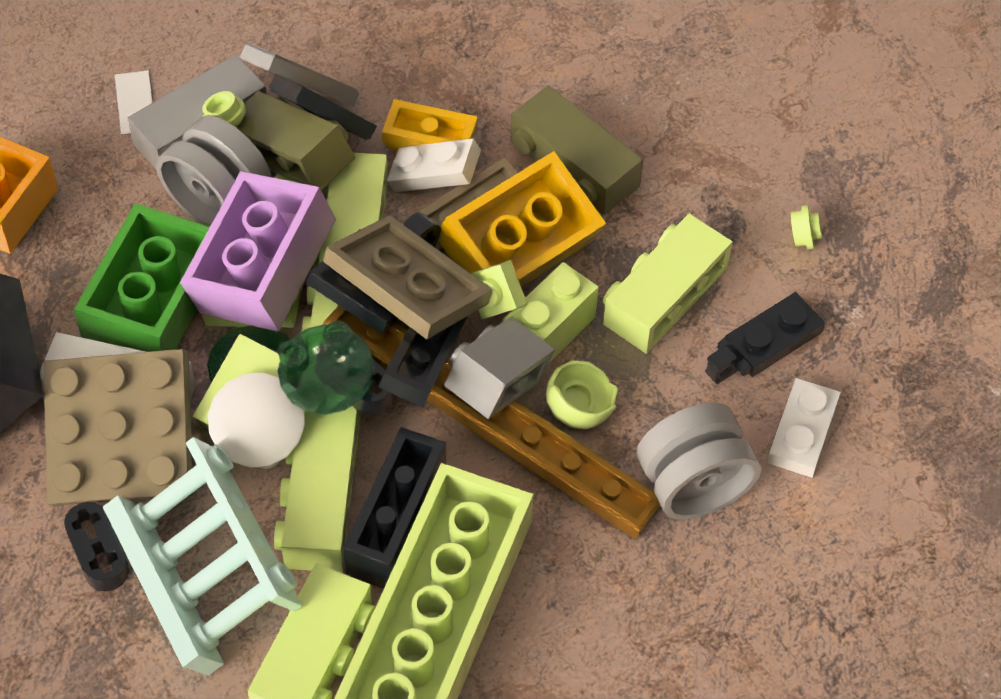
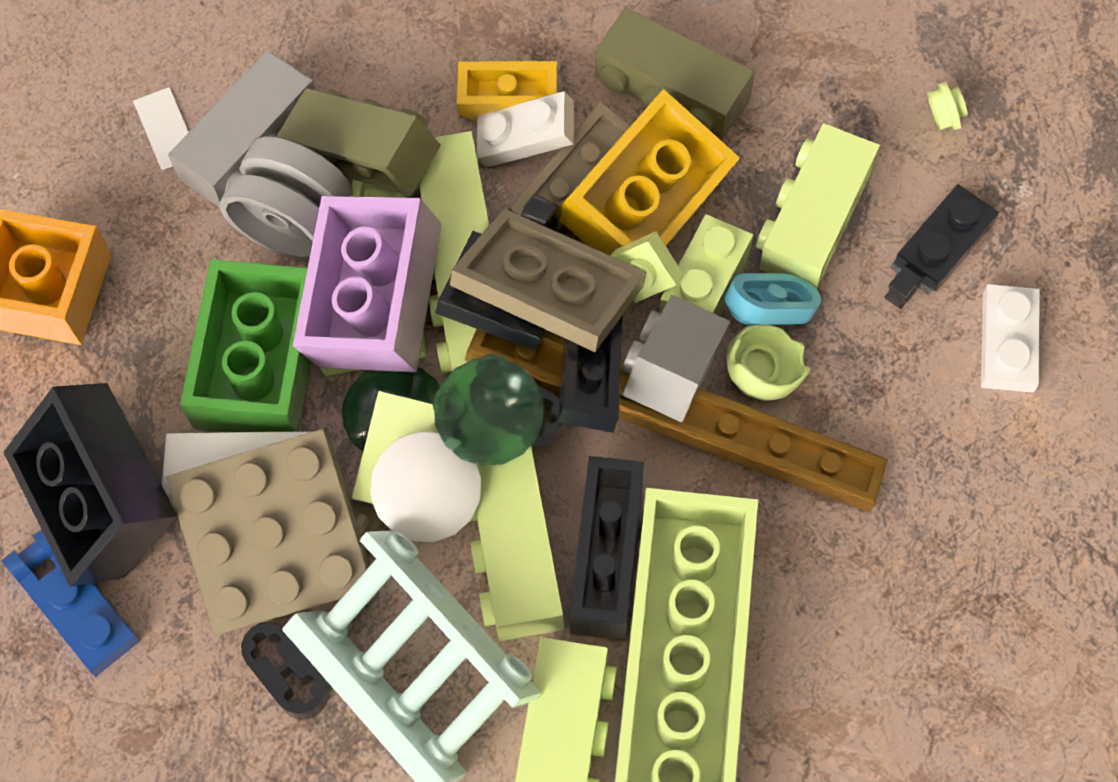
camera: 10 degrees left, 10 degrees up
(225, 106) = (277, 120): yellowish green plate -> none
(299, 74) = (348, 60): light grey tile -> none
(321, 107) = (385, 93): black tile -> none
(601, 345) = (771, 299): none -> medium azure plate
(698, 461) = (921, 412): light grey wheel -> none

